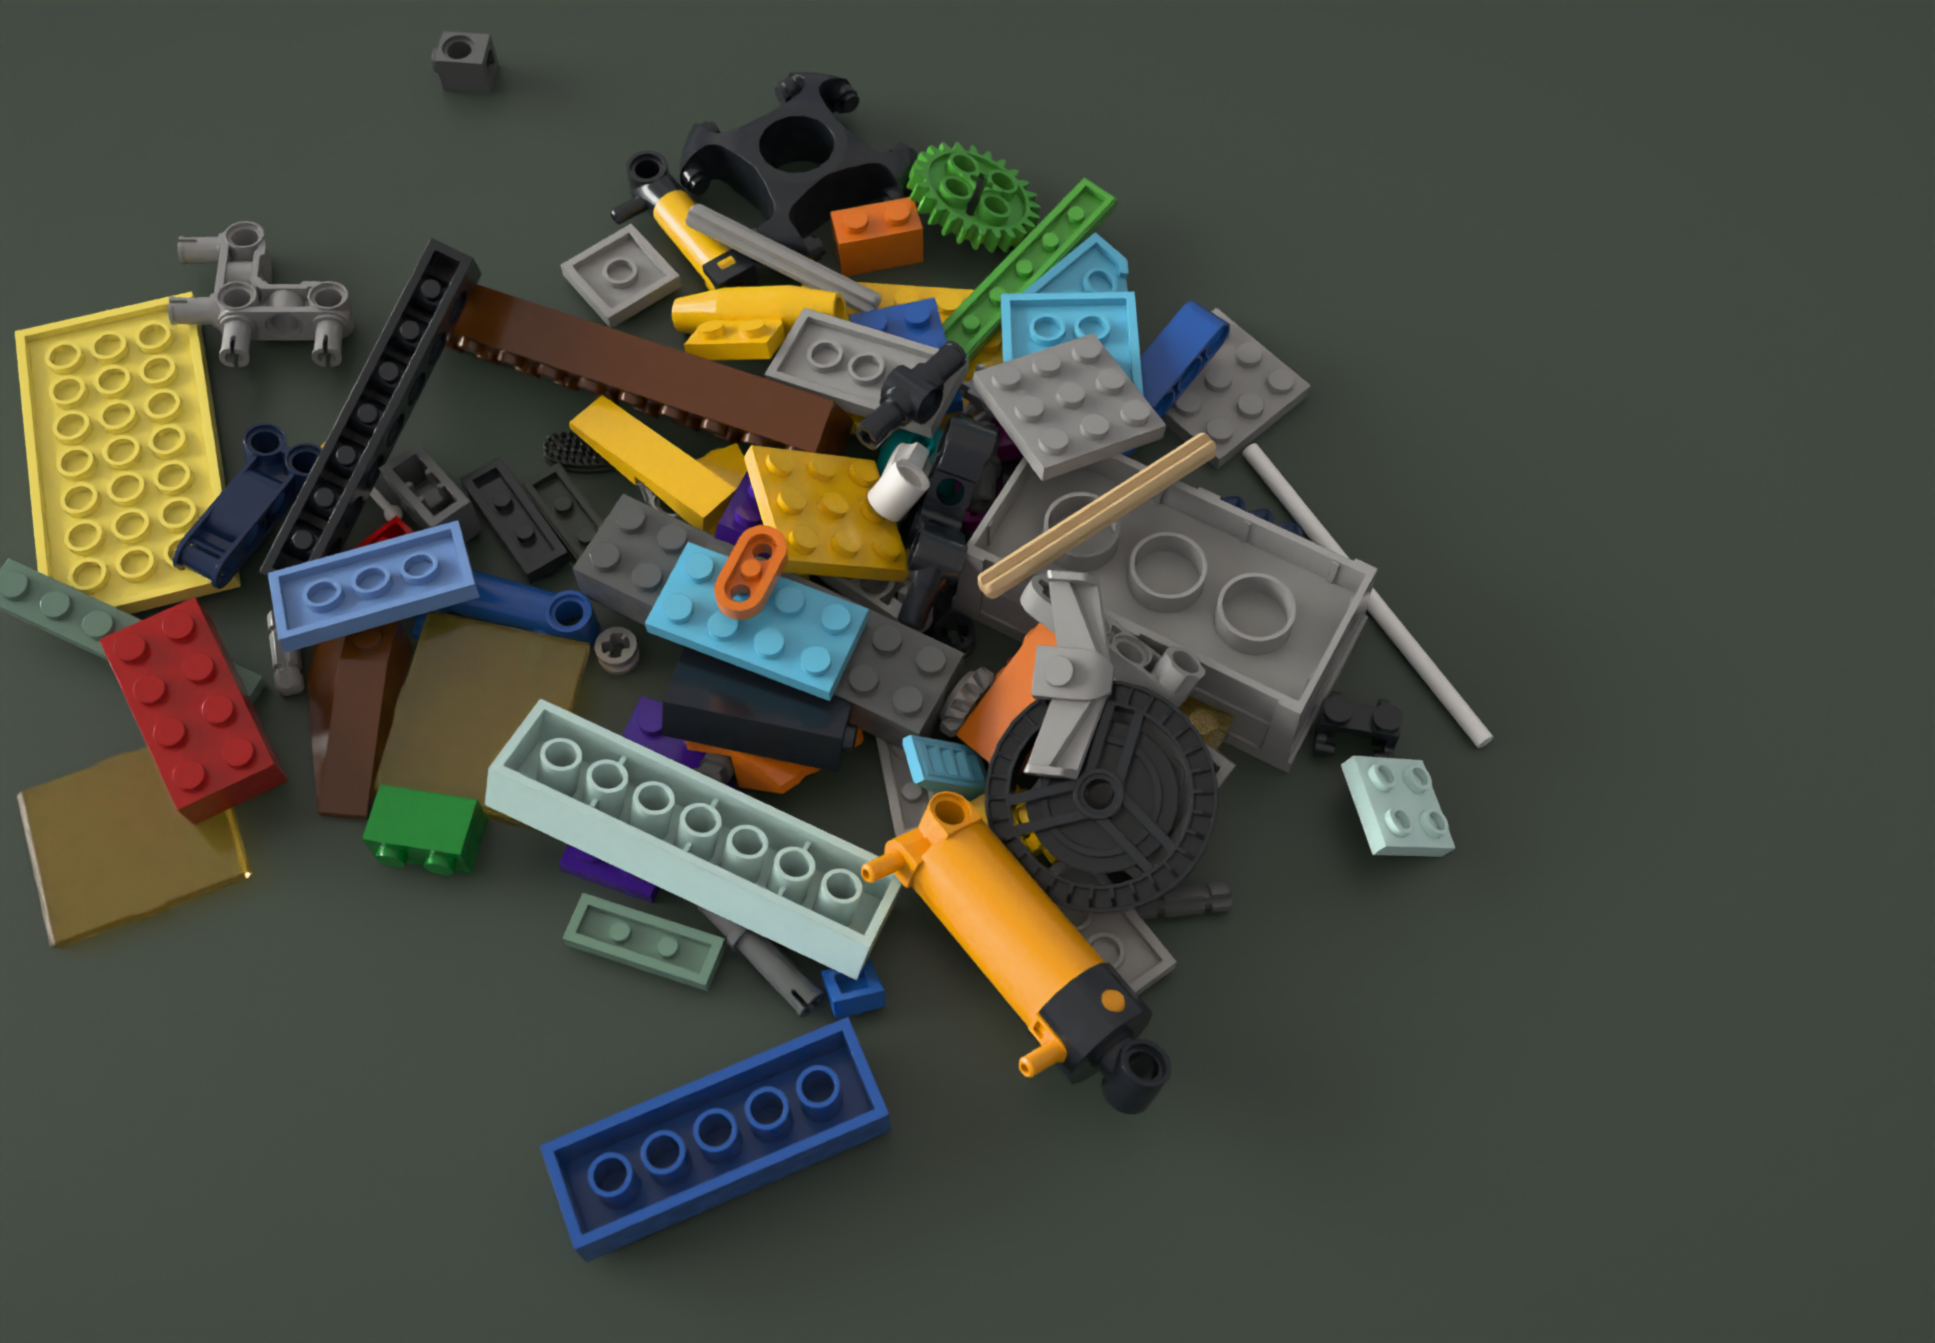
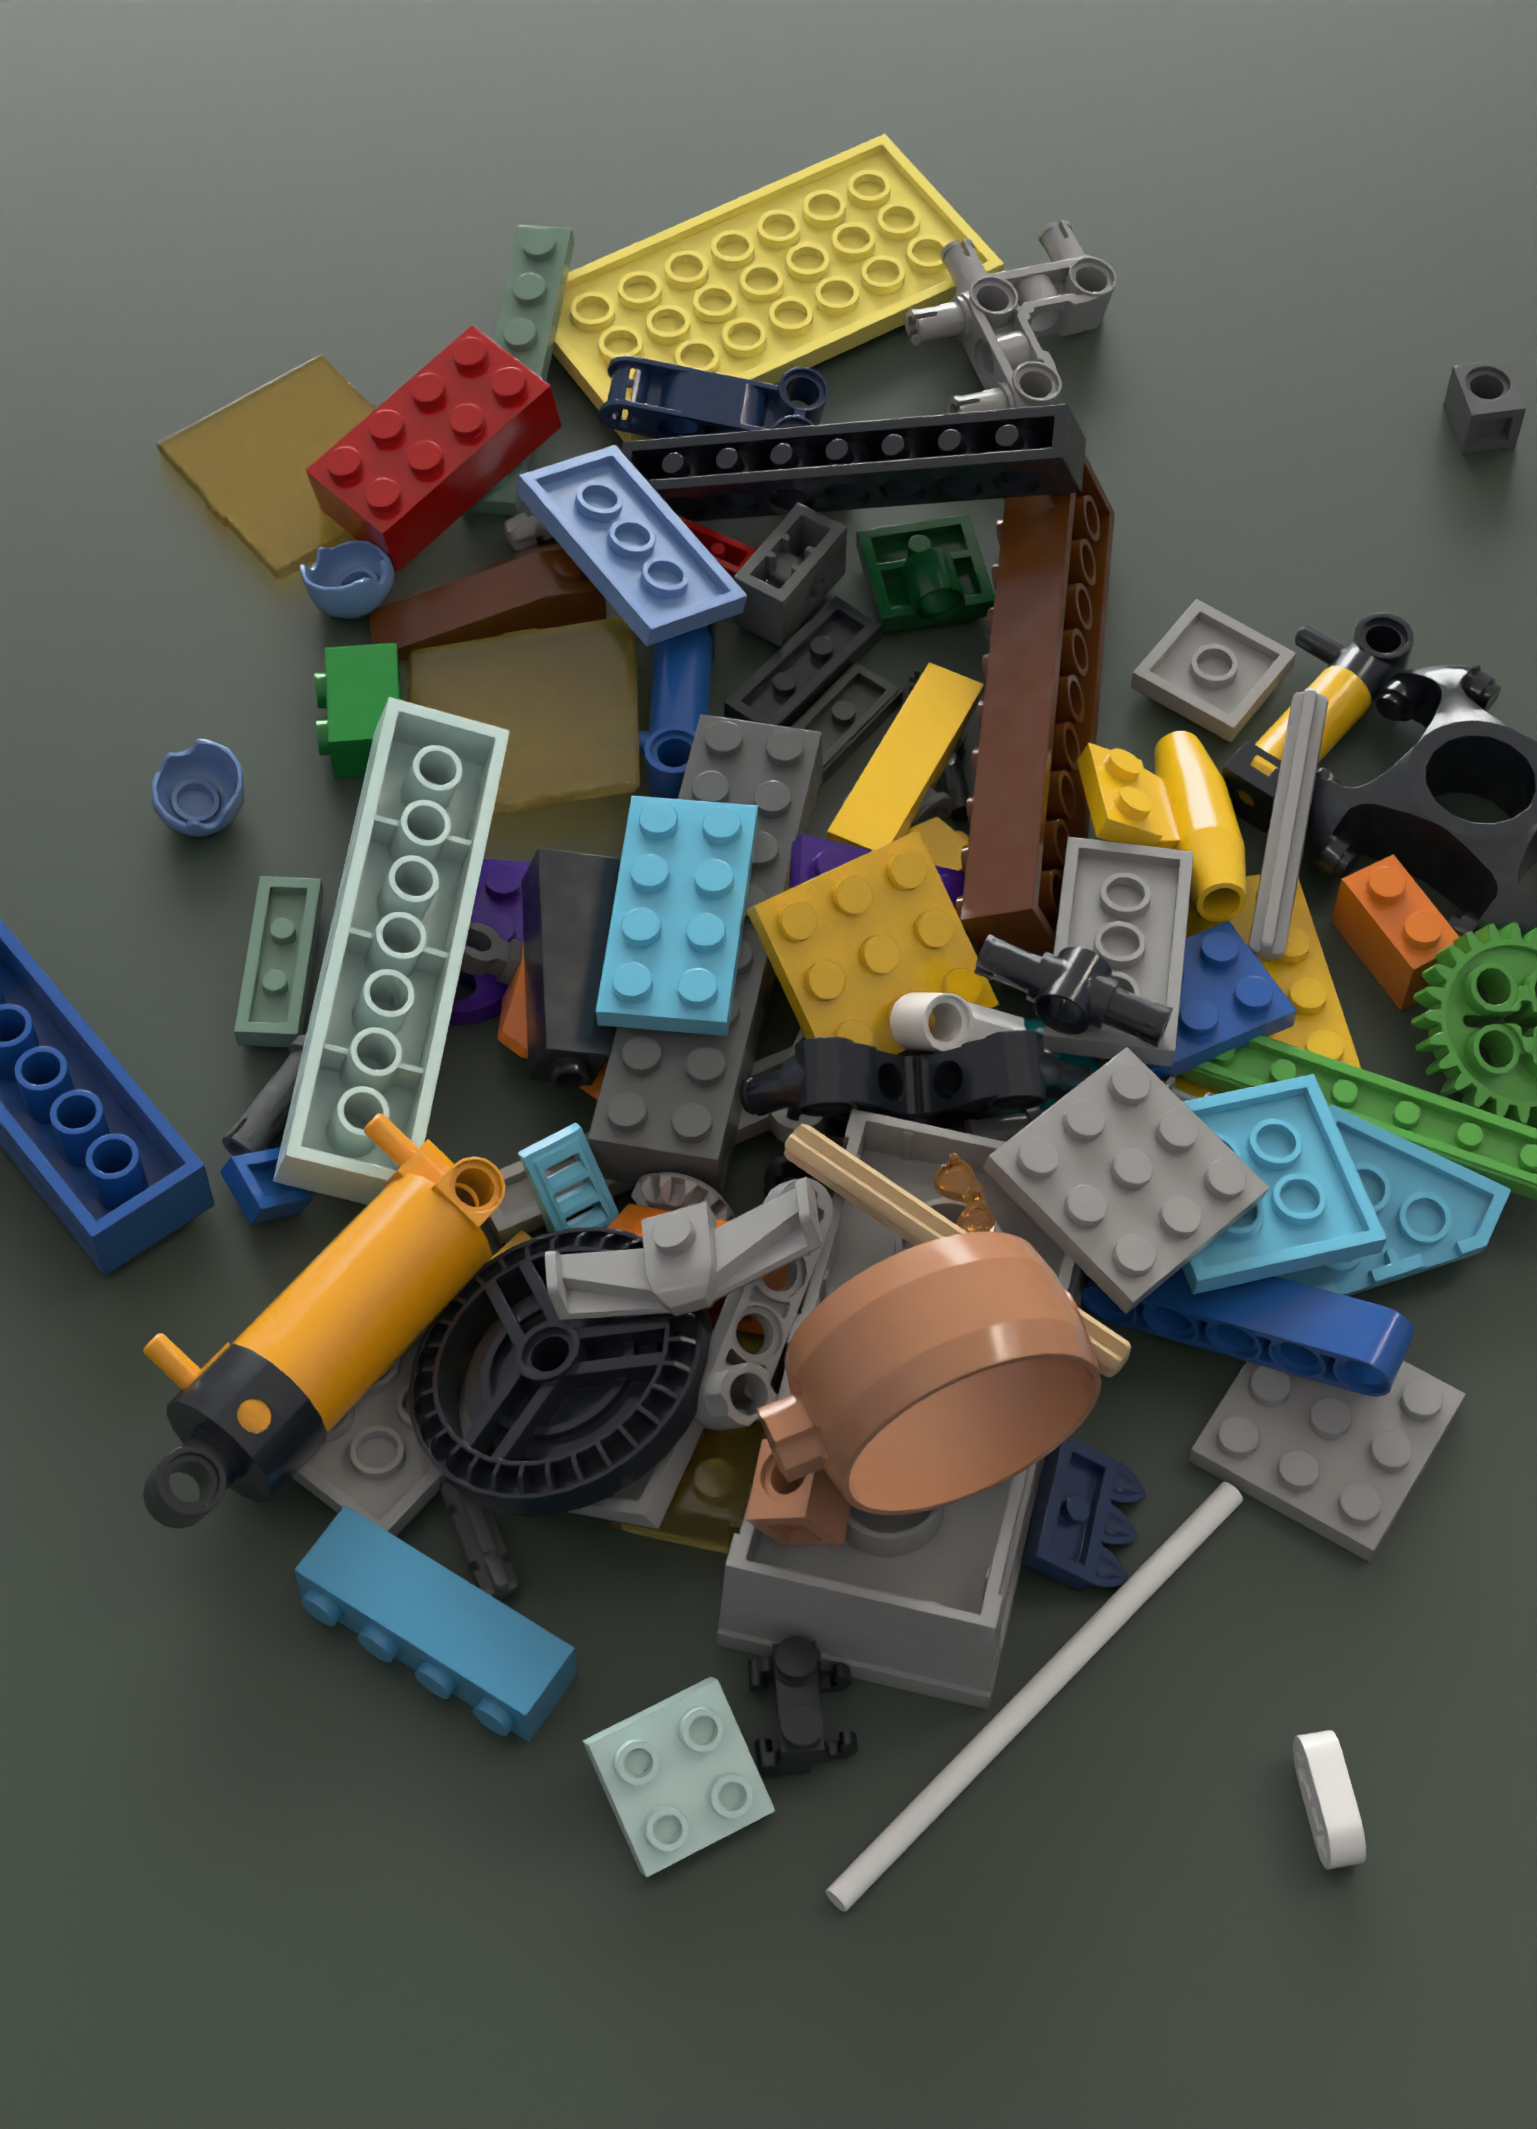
camera: 75 degrees right, 5 degrees down
(285, 813) = (349, 579): none -> medium blue hair
(457, 968) = (198, 789): none -> medium blue hair
(460, 419) = (925, 573): none -> dark green plate
(748, 575) = (717, 867): orange plate -> none
(1043, 500) = (958, 1182): none -> clear orange piece
(1248, 941) = (436, 1625): none -> dark azure brick
(1251, 520) = (934, 1376): none -> nougat cylinder
(1273, 668) = (796, 1512): none -> nougat brick
(1469, 455) = (1329, 1799): none -> white beam

